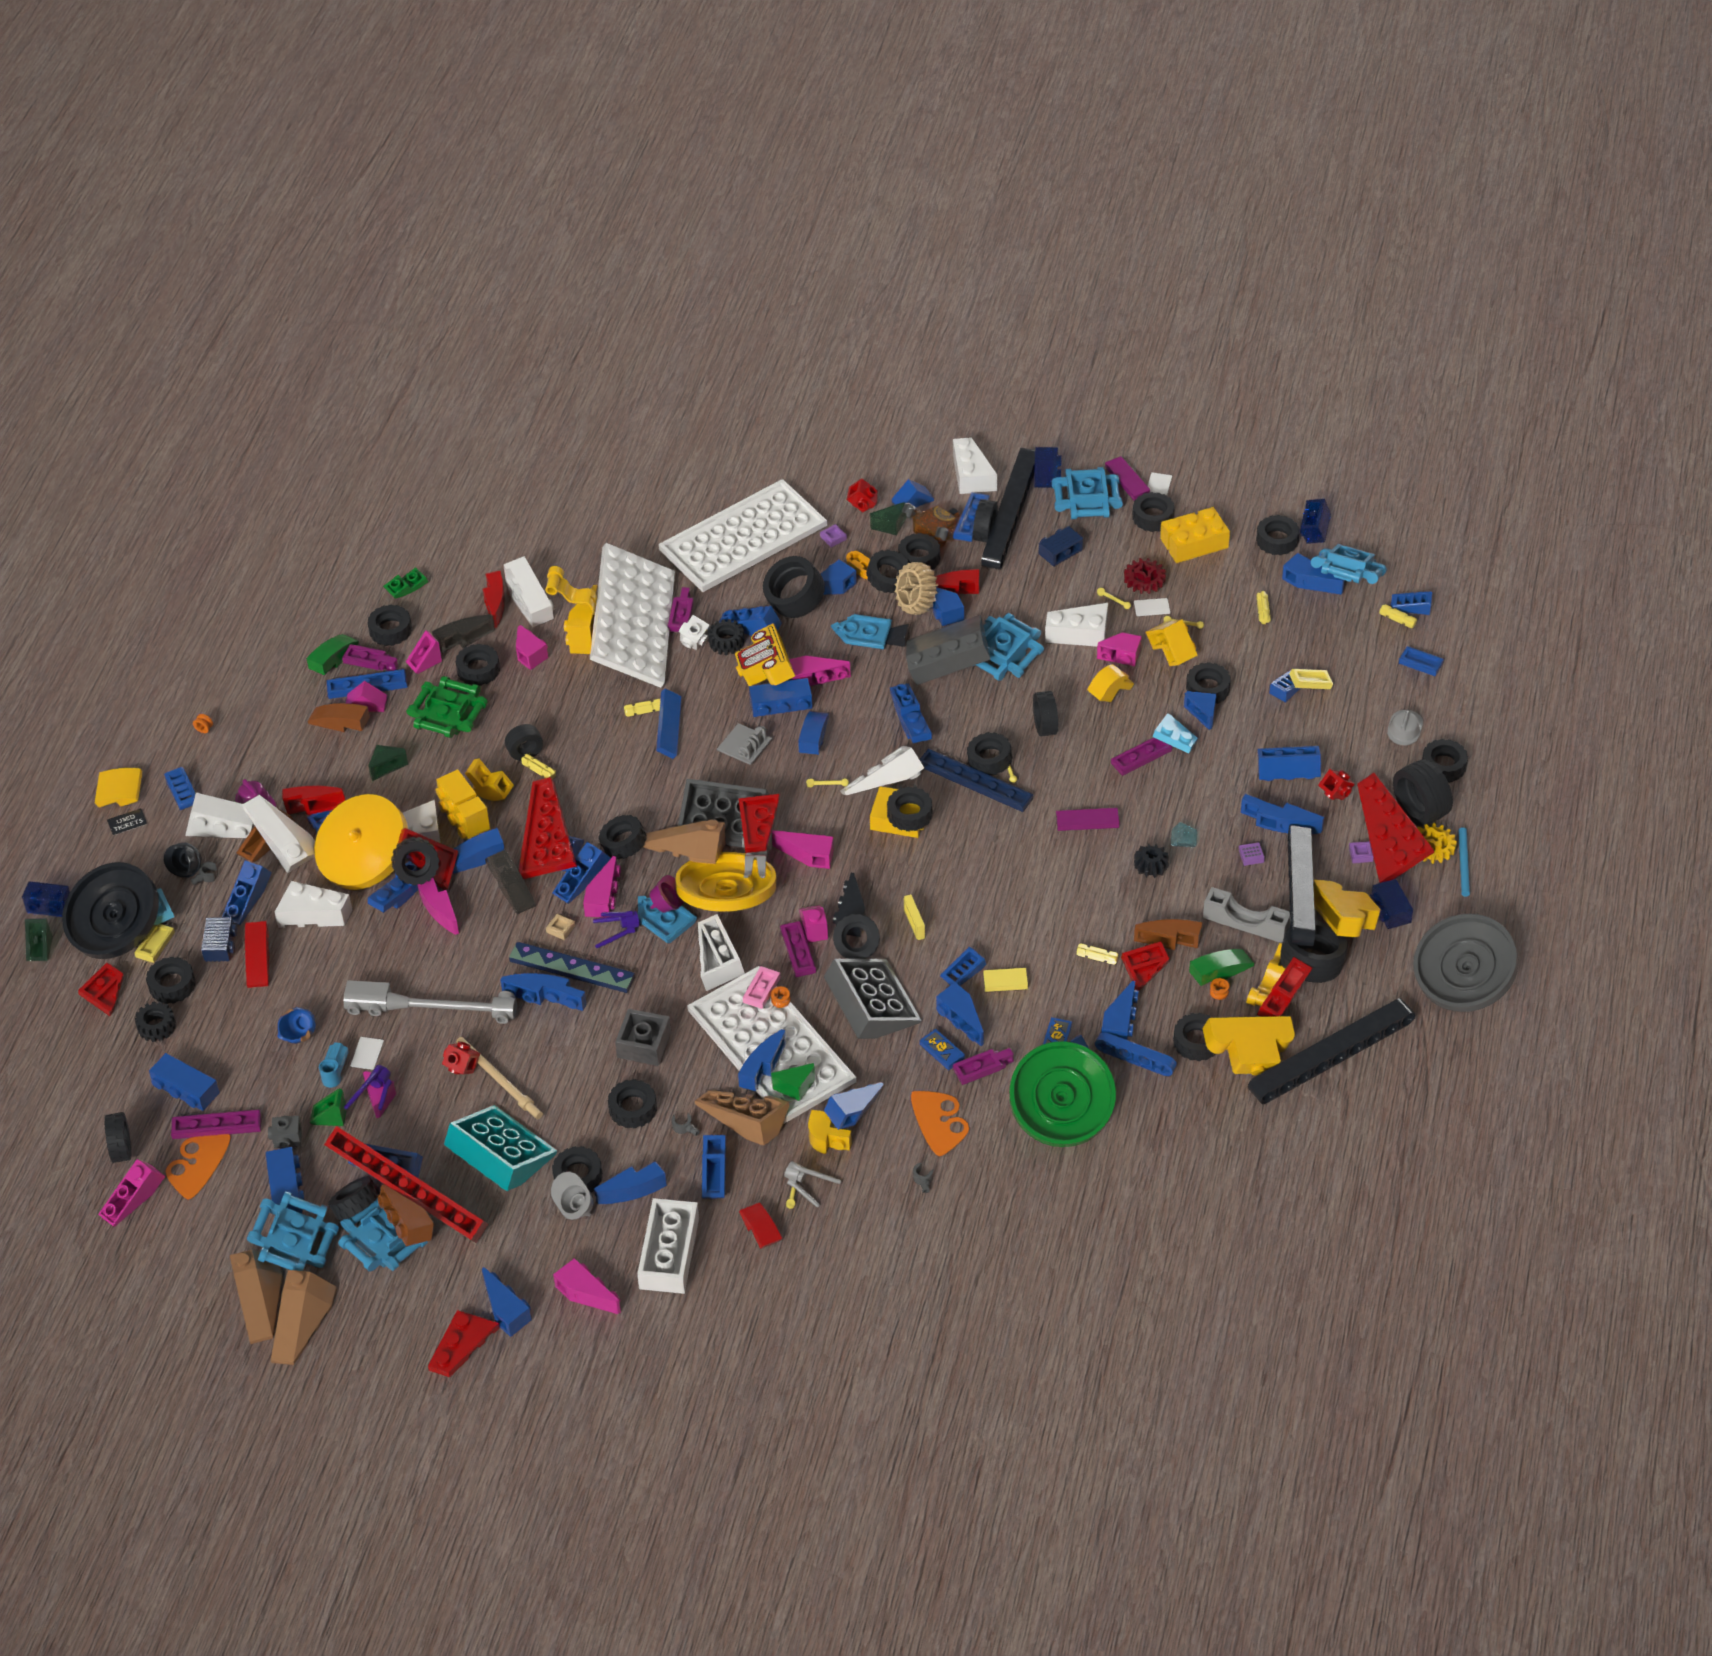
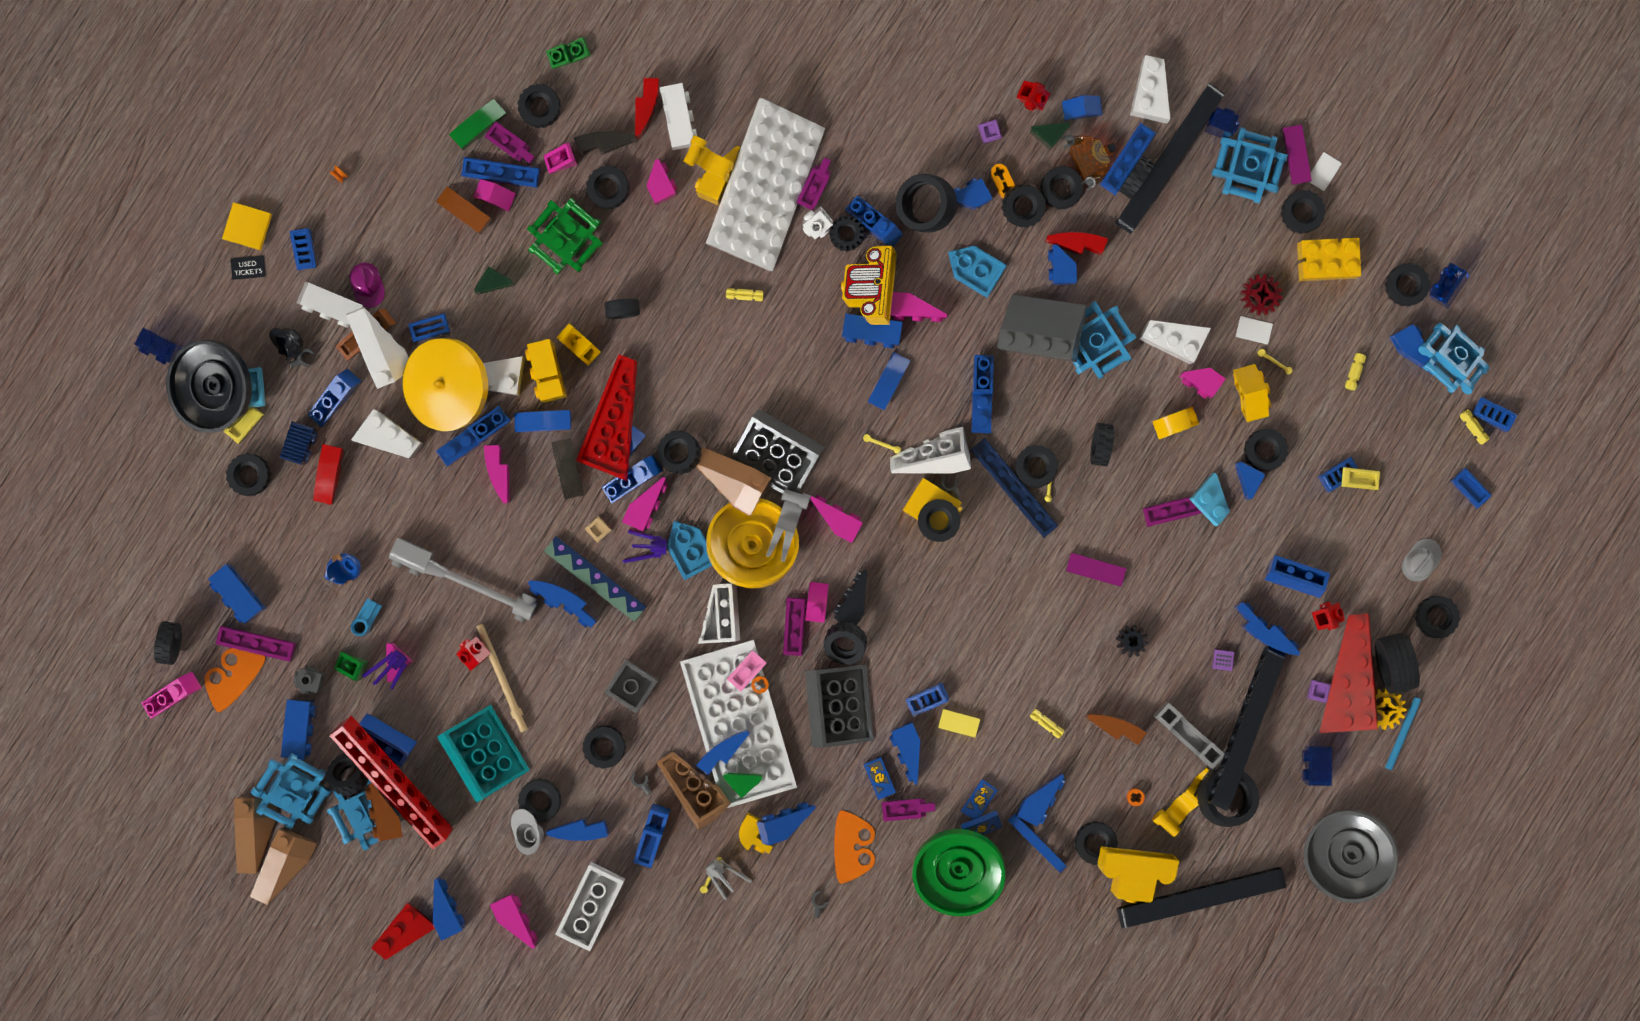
camera: 10 degrees right, 40 degrees up
(37, 939) = (141, 392): clear green slope -> none
(103, 988) = (189, 464): red wing -> none
(152, 1012) = (214, 517): black tyre -> none
(312, 799) = (414, 310): red slope -> none
(366, 1053) = (398, 609): white sticker -> none
(408, 846) = (481, 447): black tyre -> none
(446, 855) = (500, 424): red wing -> none
(538, 767) = (629, 334): light yellow axle -> none
(665, 895) = (694, 539): magenta piece -> none
(668, 723) = (761, 325): blue tile -> none
(742, 535) = (904, 103): white plate -> none
(745, 743) = (822, 371): light grey hinge -> none
(757, 820) = (799, 487): red wing -> none
(761, 1224) = (671, 906): red slope -> none
(898, 635) = (1005, 286): black slope -> none
(914, 917) = (904, 631): light yellow tile -> none
(916, 588) = (1039, 246): tan gear -> none
(1060, 546) = (1197, 227): dark blue brick -> none
(1101, 591) = (1231, 322): light yellow hinge -> none
(1145, 963) = (1083, 749): red wing -> none
(1183, 836) = (1172, 618): clear light blue slope -> none
(1219, 965) = (1146, 776): green slope -> none
(1285, 989) = (1185, 833): red slope -> none
(1345, 910) = (1273, 765): yellow brick -> none

